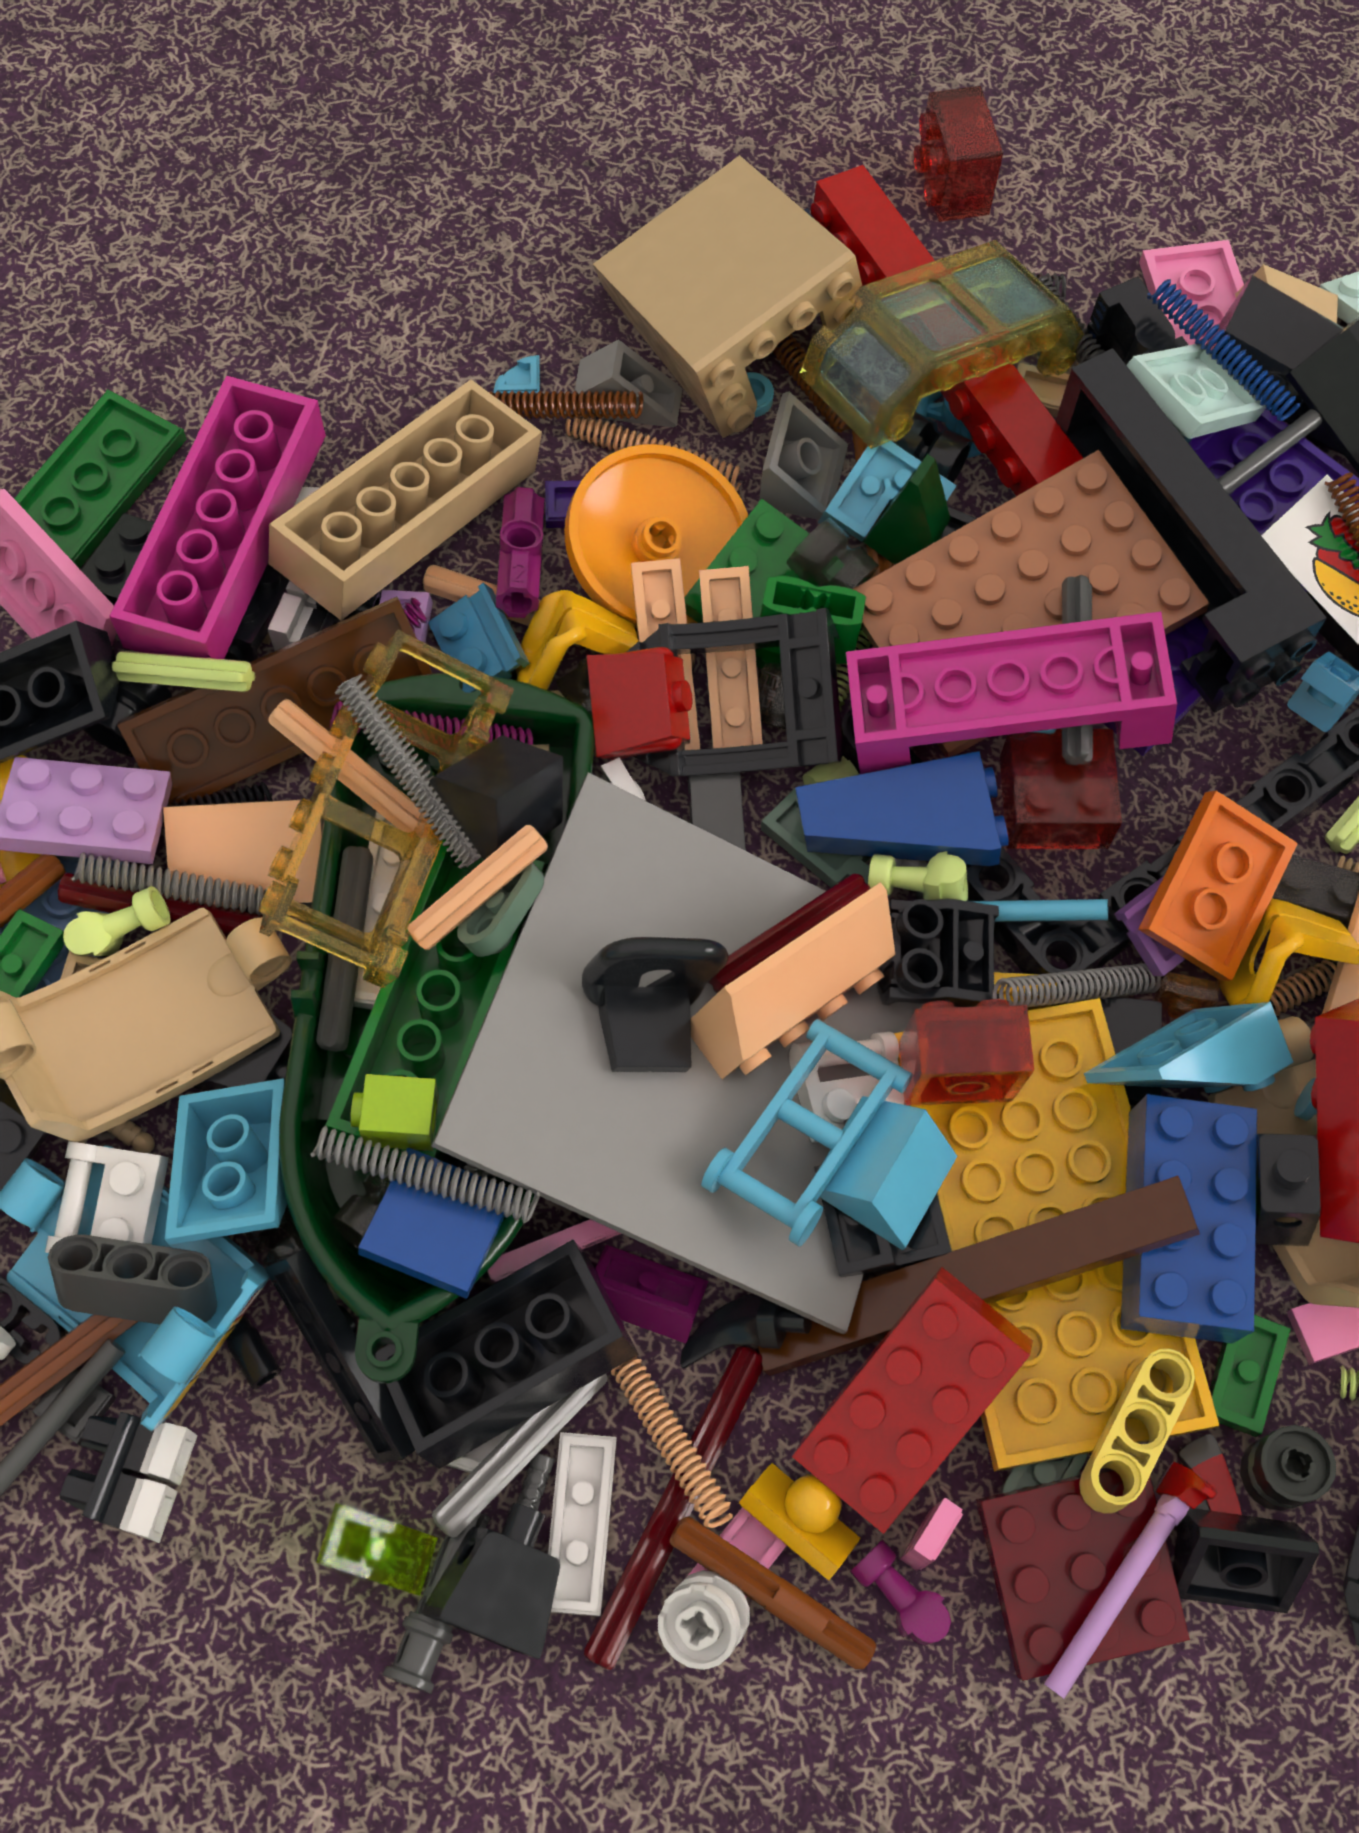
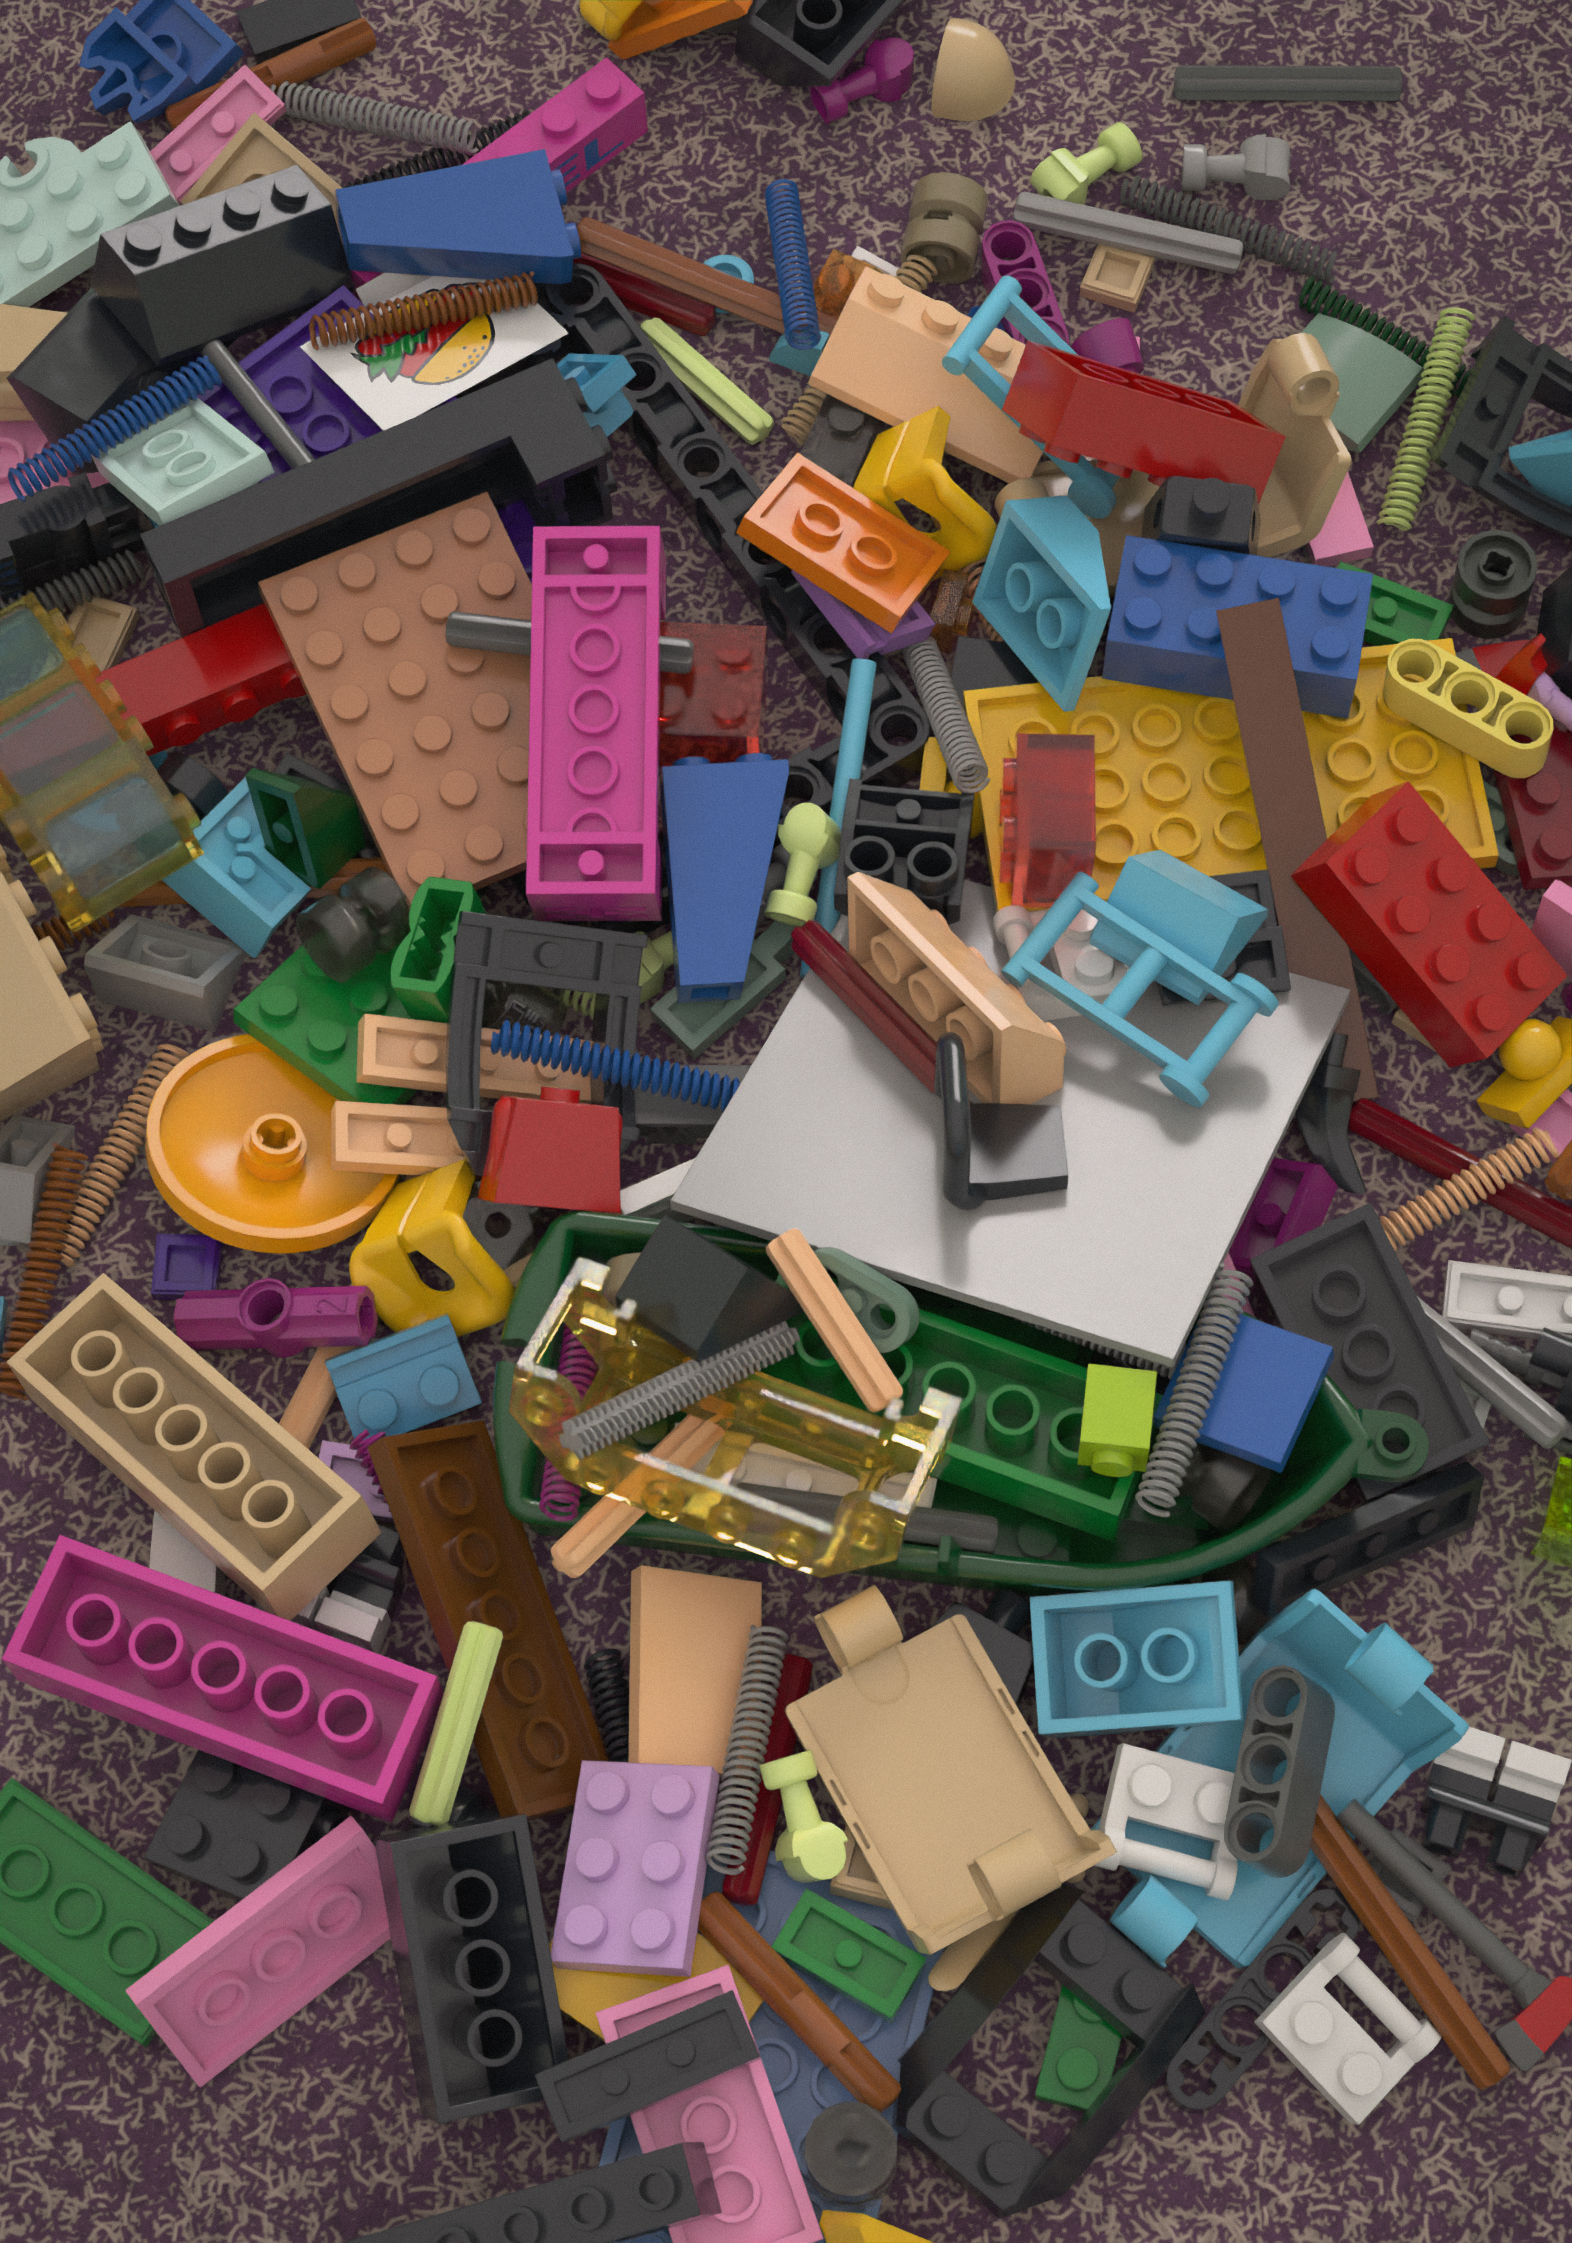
camera: 80 degrees left, 0 degrees up
(731, 732) = (576, 1056): none -> blue piece

